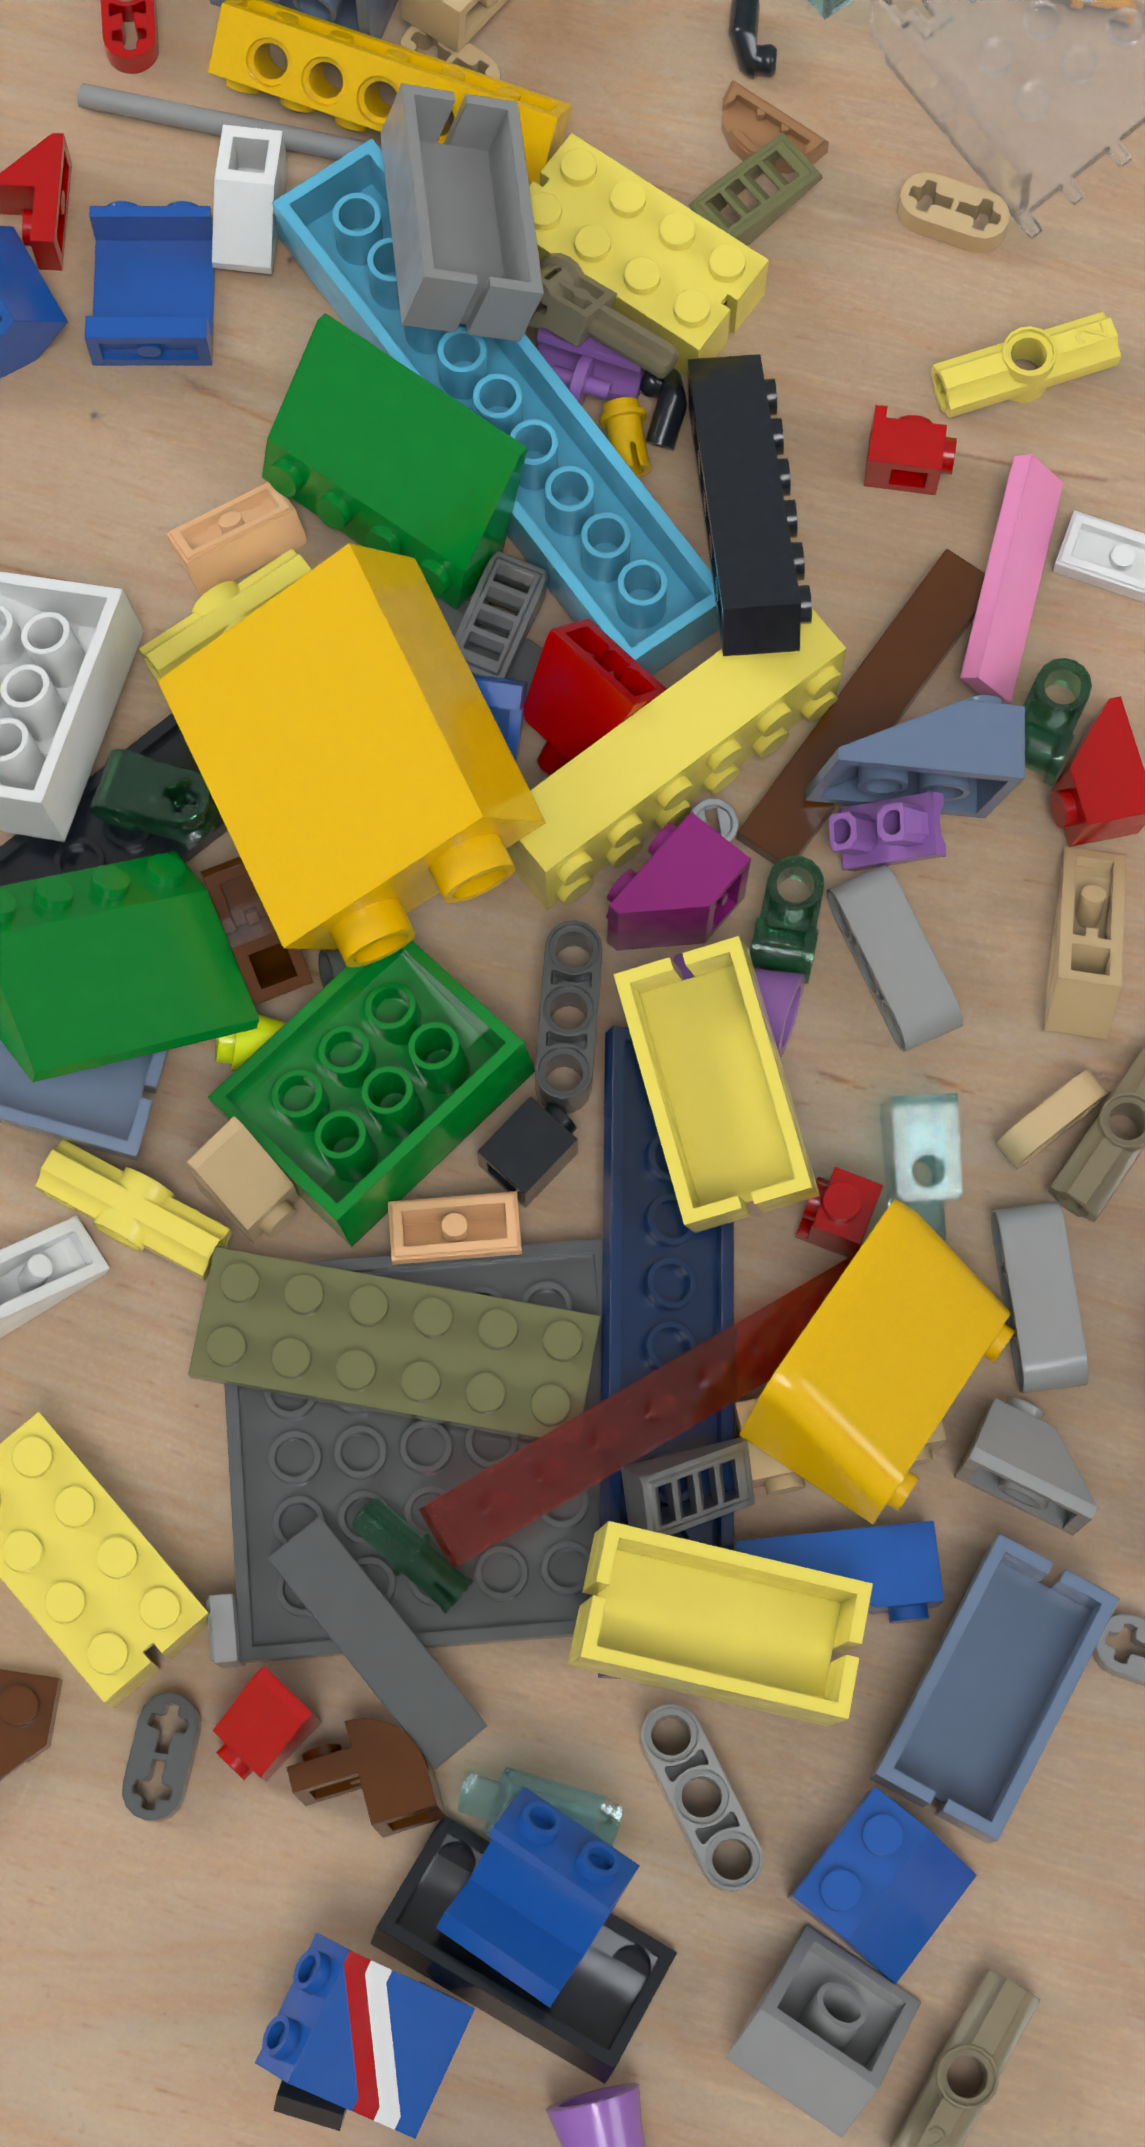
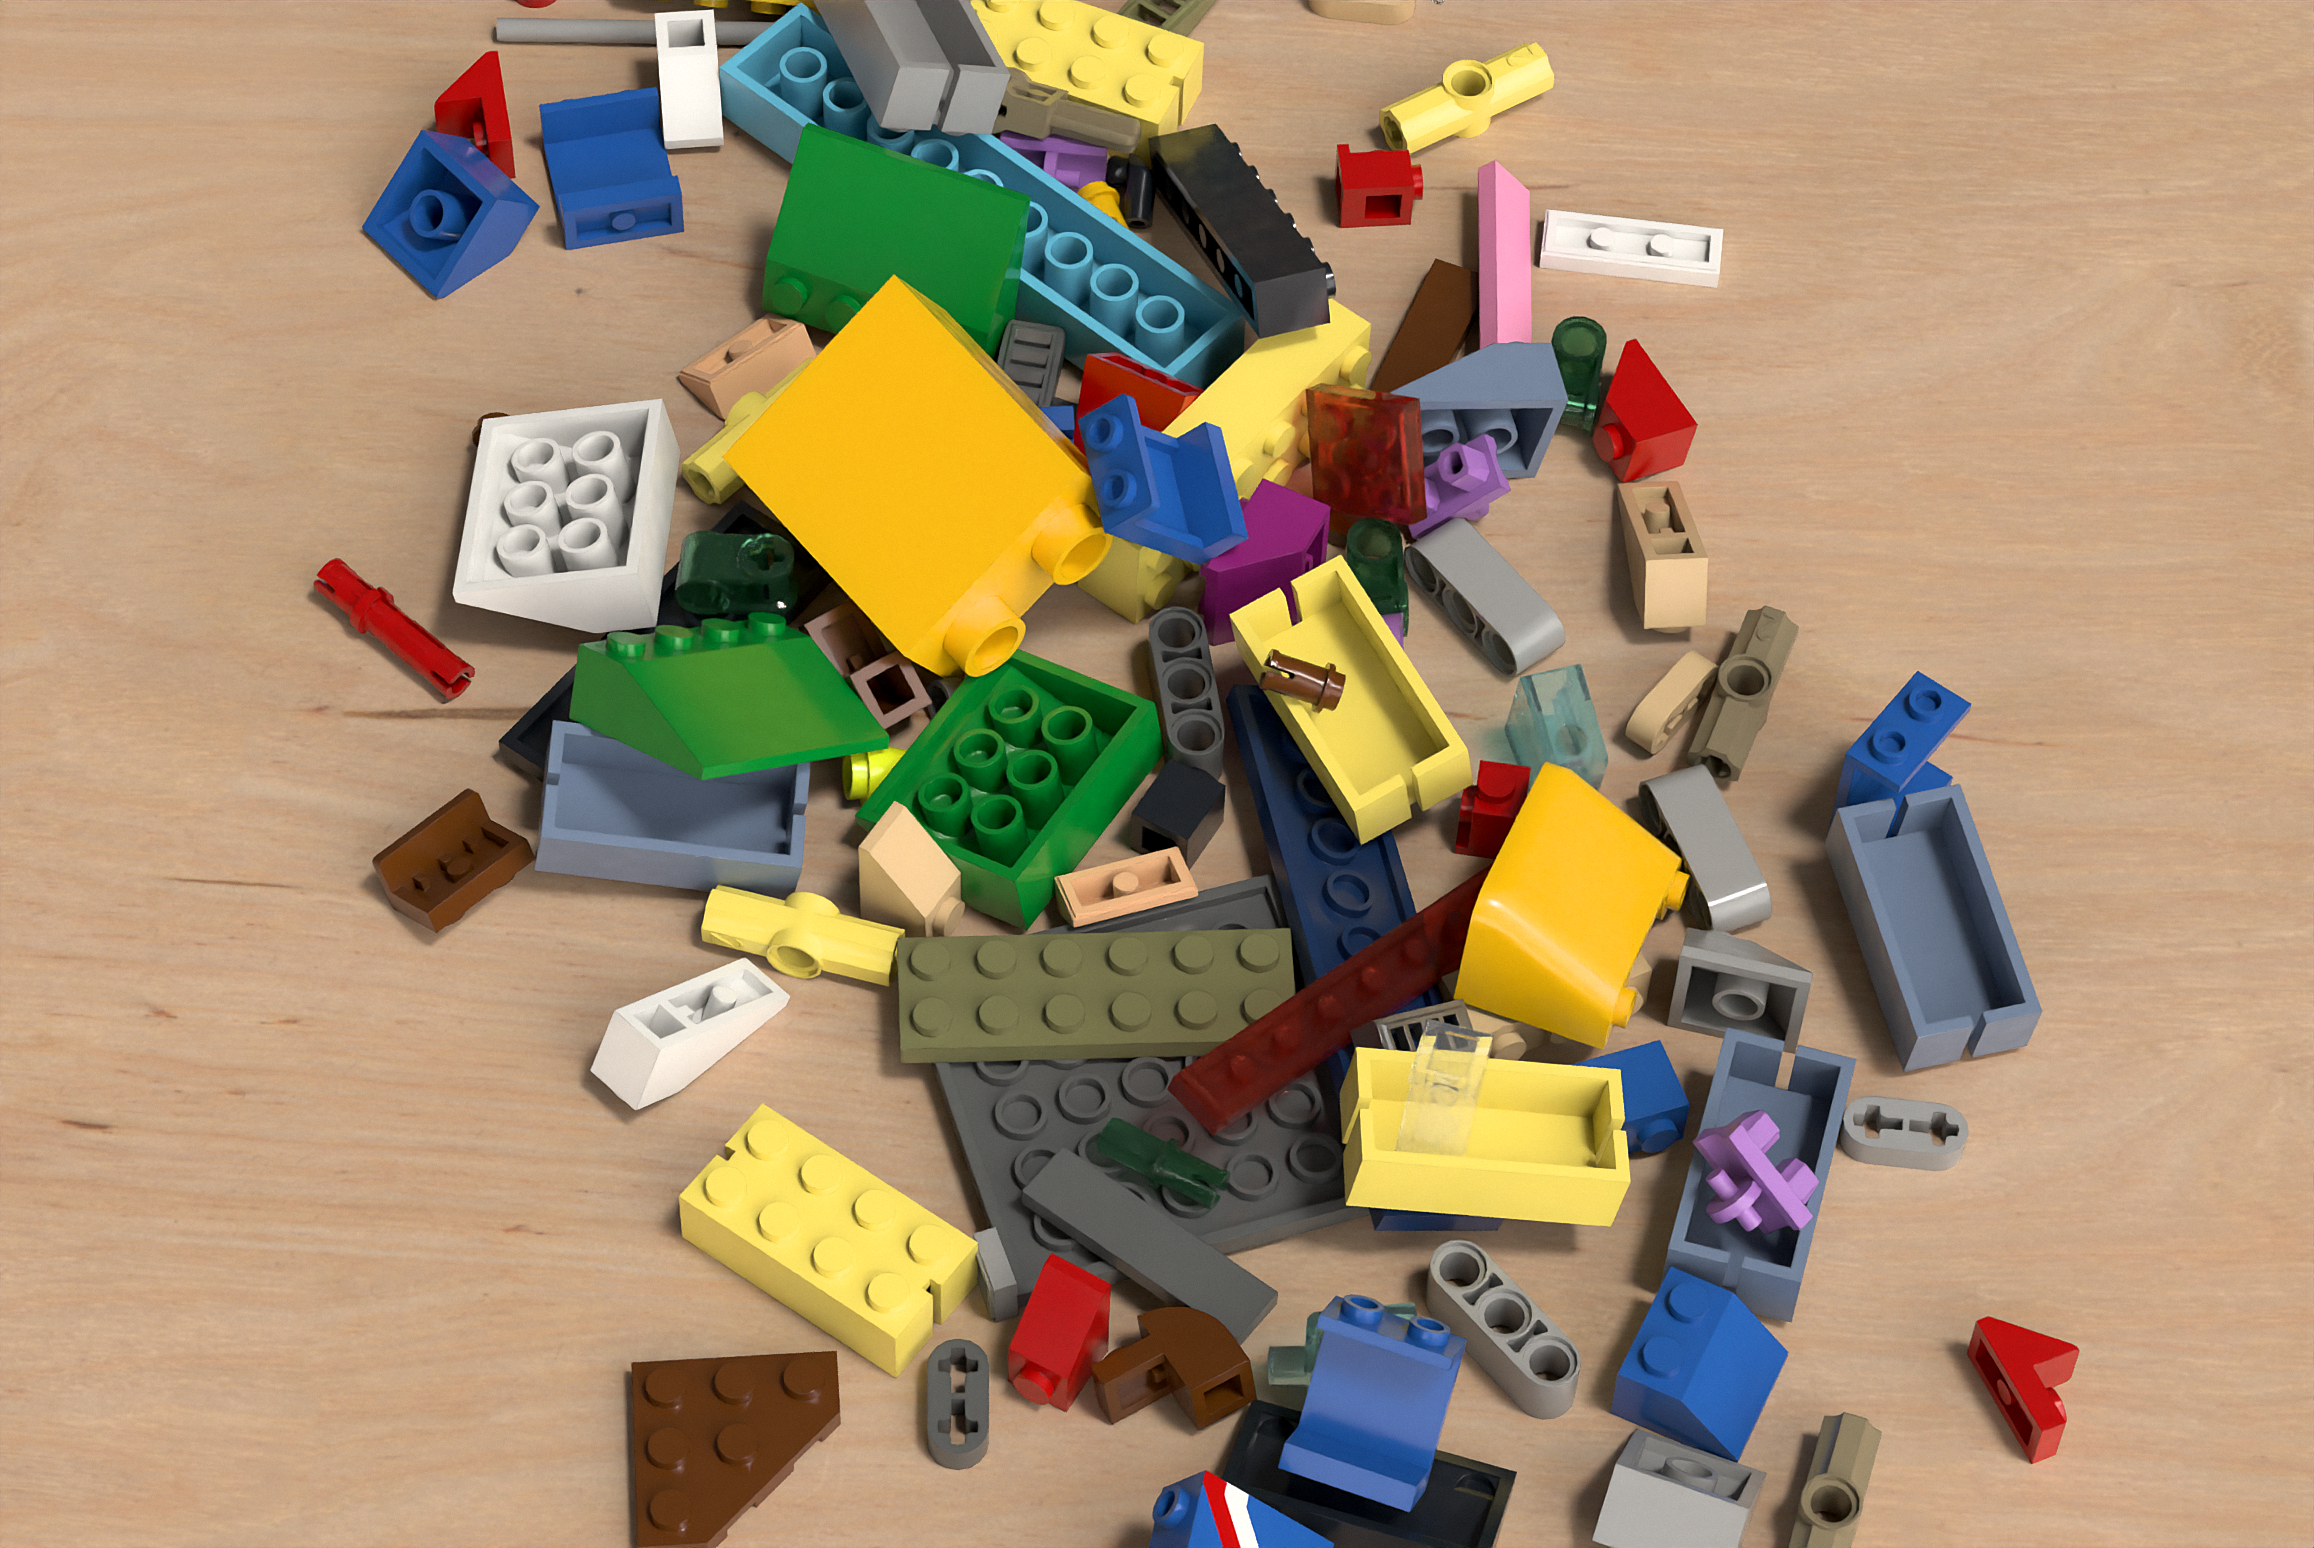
camera: 15 degrees left, 20 degrees down
(574, 823) = (1162, 487): none -> blue panel
(665, 1073) = (1305, 682): none -> reddish brown pin
(683, 1590) = (1444, 1090): none -> clear slope
(806, 796) = (1367, 453): none -> clear red plate
(972, 1730) = (1748, 1182): none -> medium lavender hips

